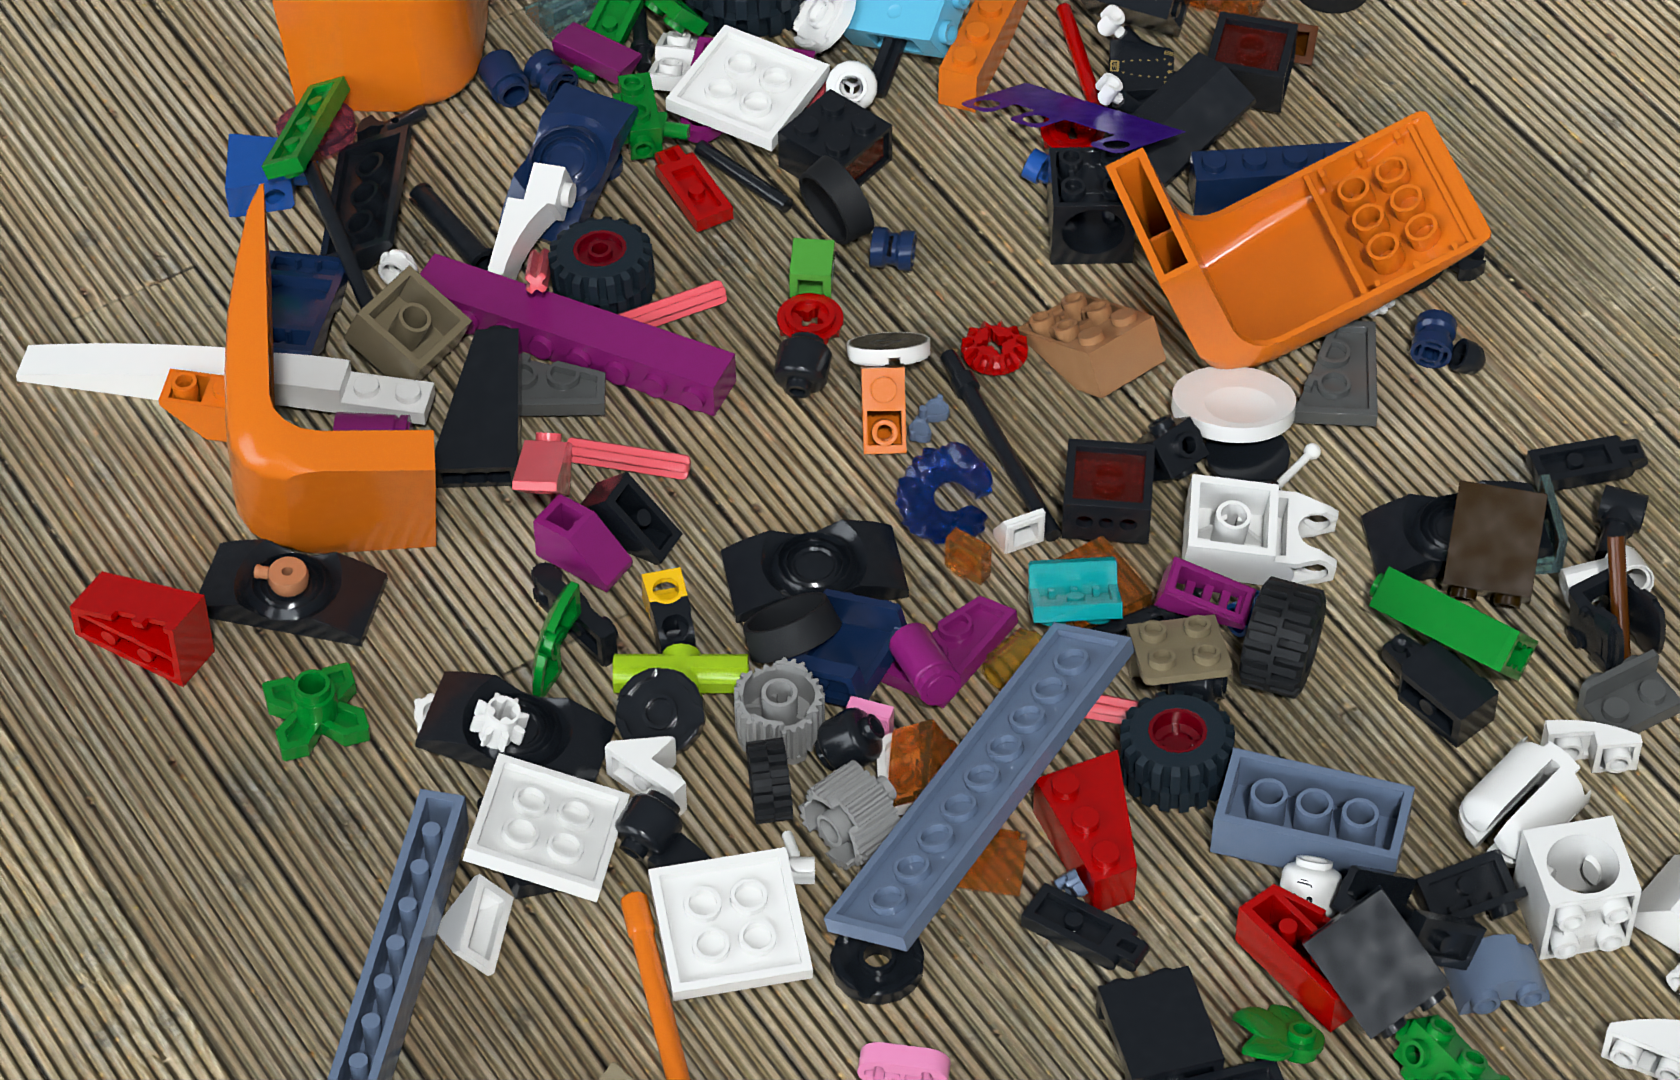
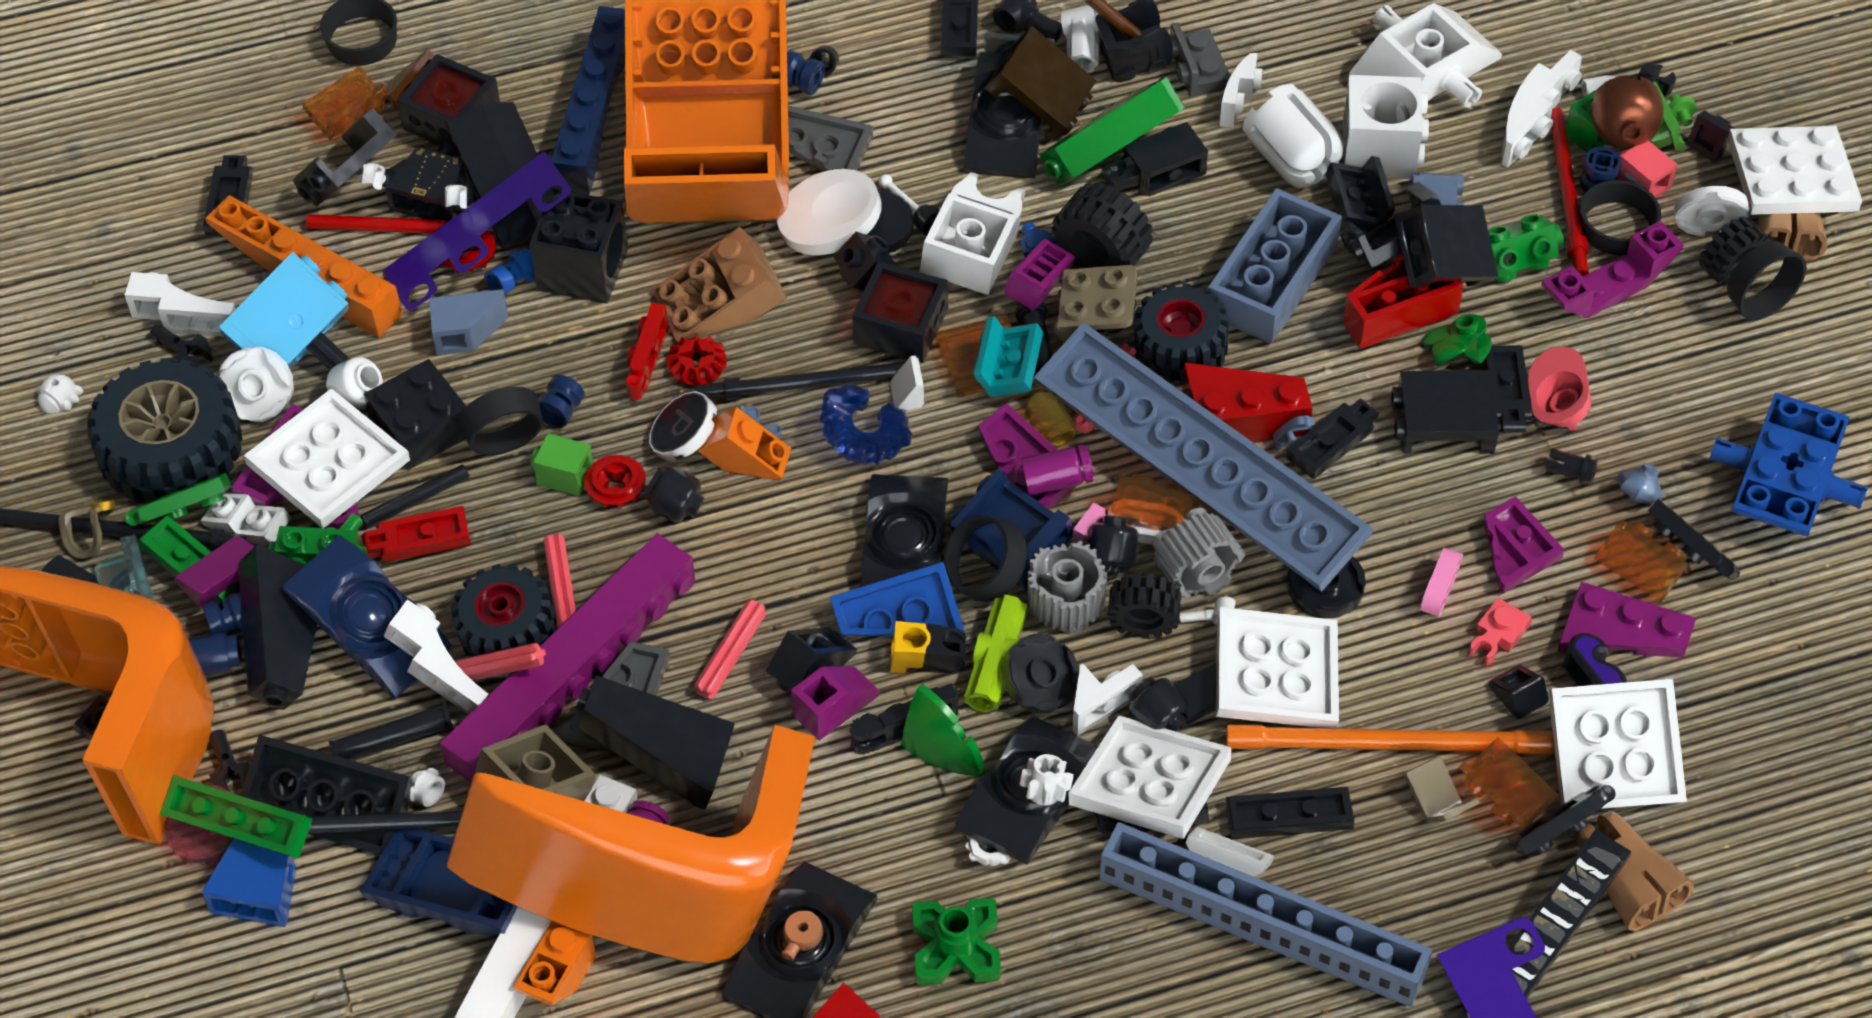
camera: 75 degrees left, 5 degrees up
(514, 113) = (274, 628): none -> black slope
(544, 466) = (758, 697): coral slope -> none
(552, 978) = (1289, 813): none -> black tile
(716, 580) = (910, 597): none -> blue wing
(968, 556) = (931, 425): clear orange plate -> none
(970, 151) = (466, 320): none -> sand blue slope
(982, 301) = (644, 355): none -> red hinge
(1313, 880) = (1334, 280): white head -> none

